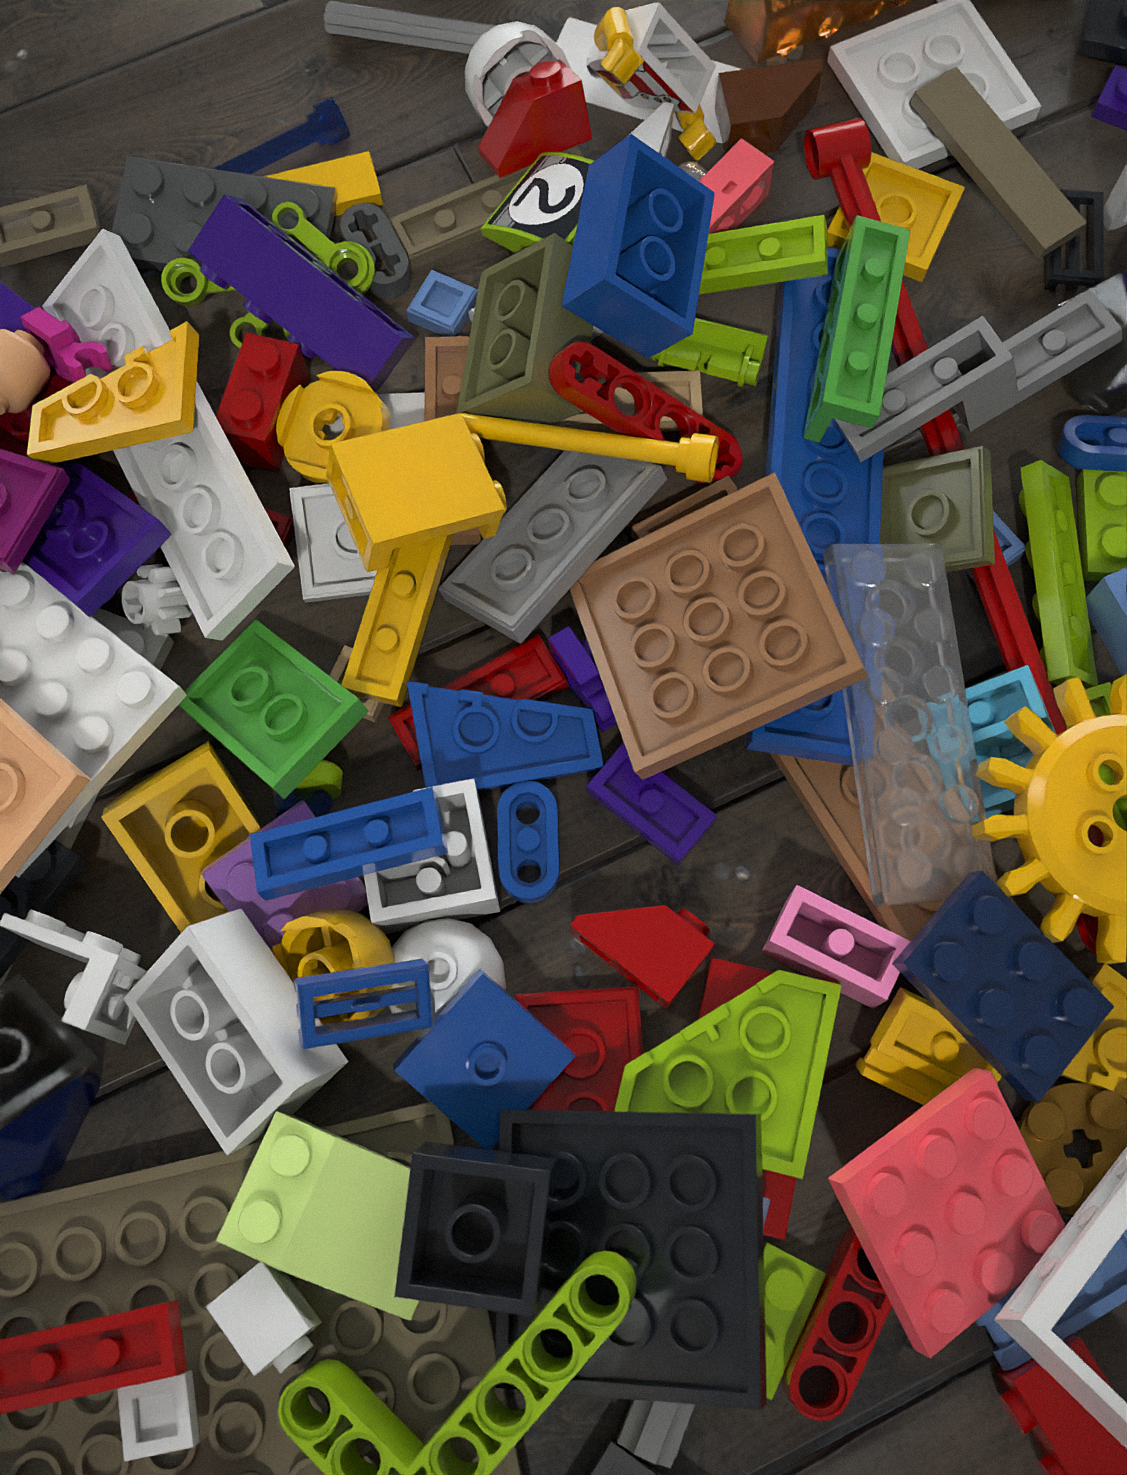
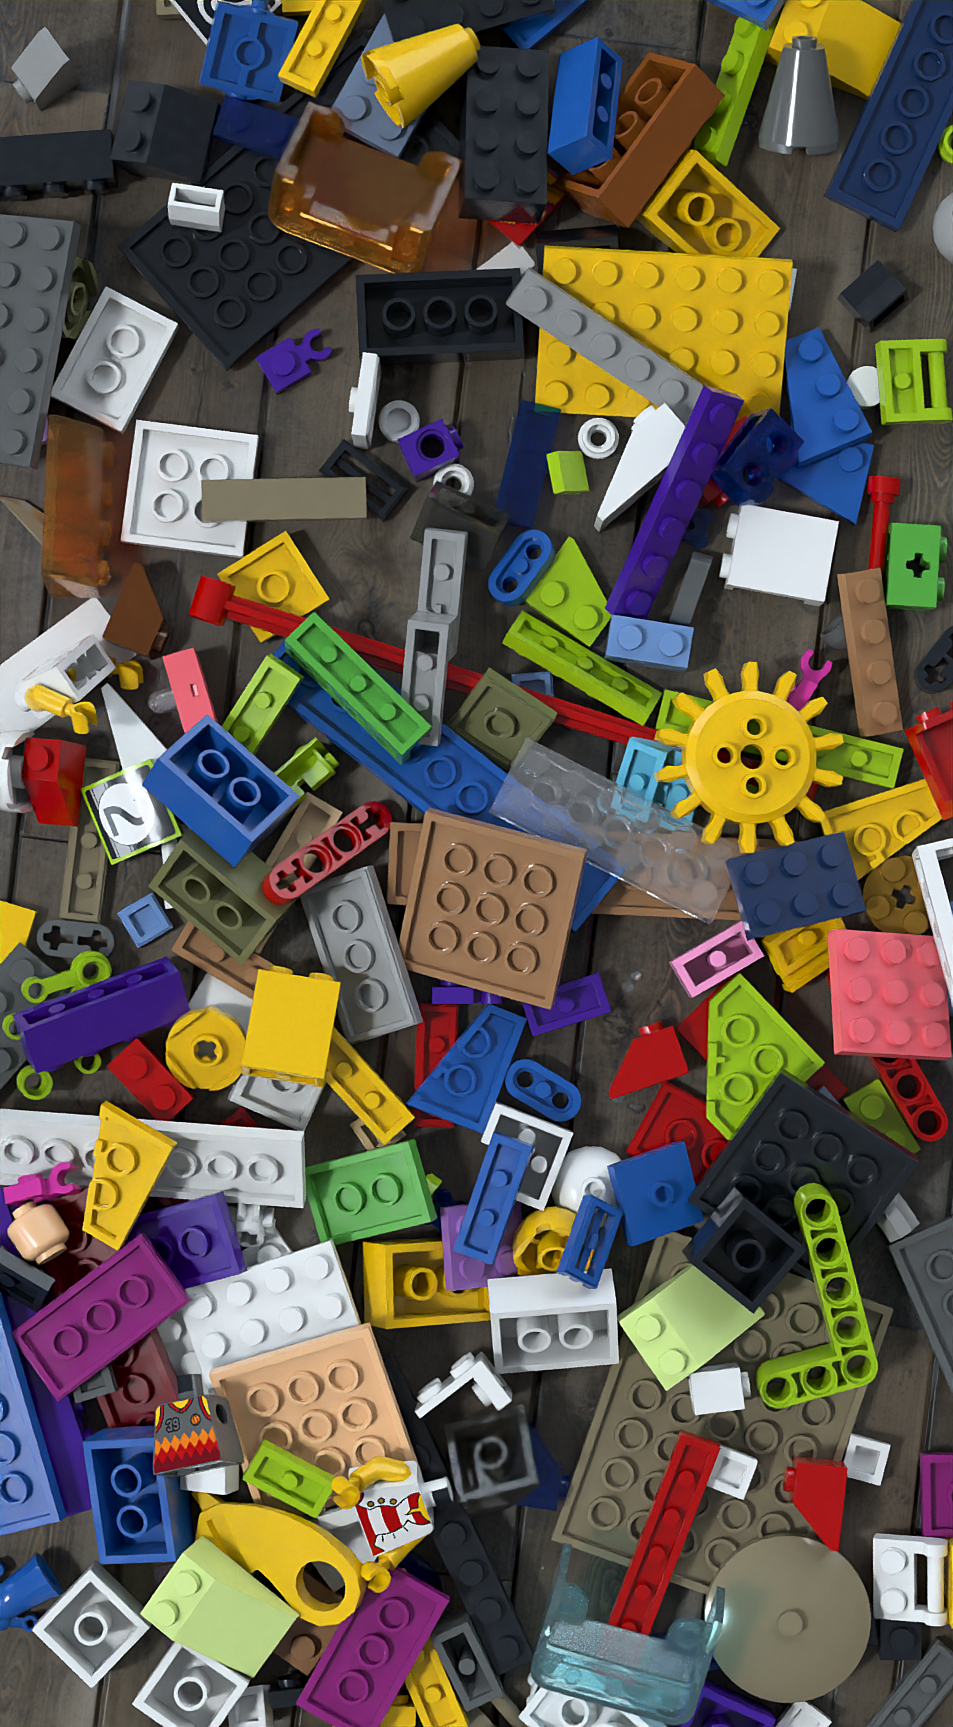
camera: 65 degrees left, 15 degrees up
(691, 455) = (374, 847): yellow piece -> none

